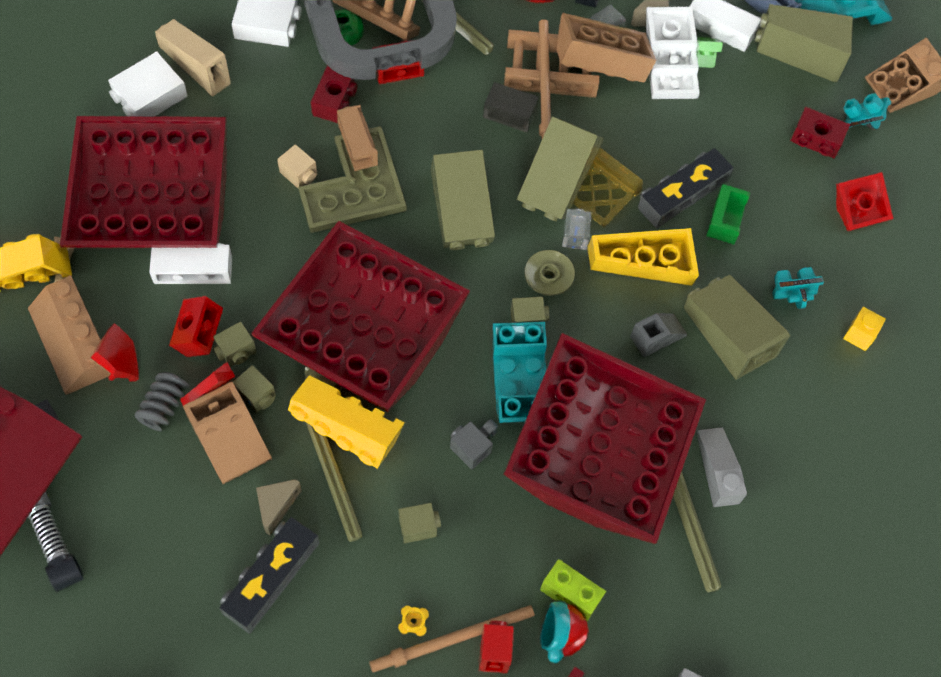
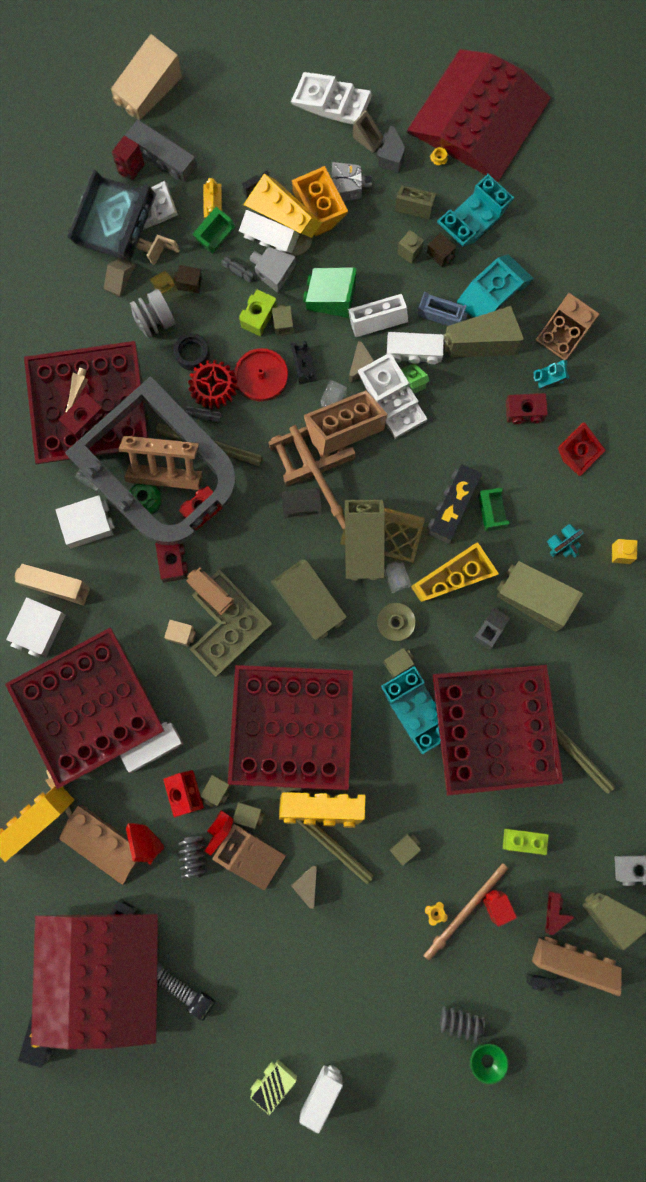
camera: 20 degrees left, 15 degrees up
(269, 574) = (331, 935): black brick -> none
(473, 444) = (410, 775): dark grey brick -> none
(563, 631) = (532, 871): teal piece -> none
(721, 468) = (576, 703): light grey slope -> none

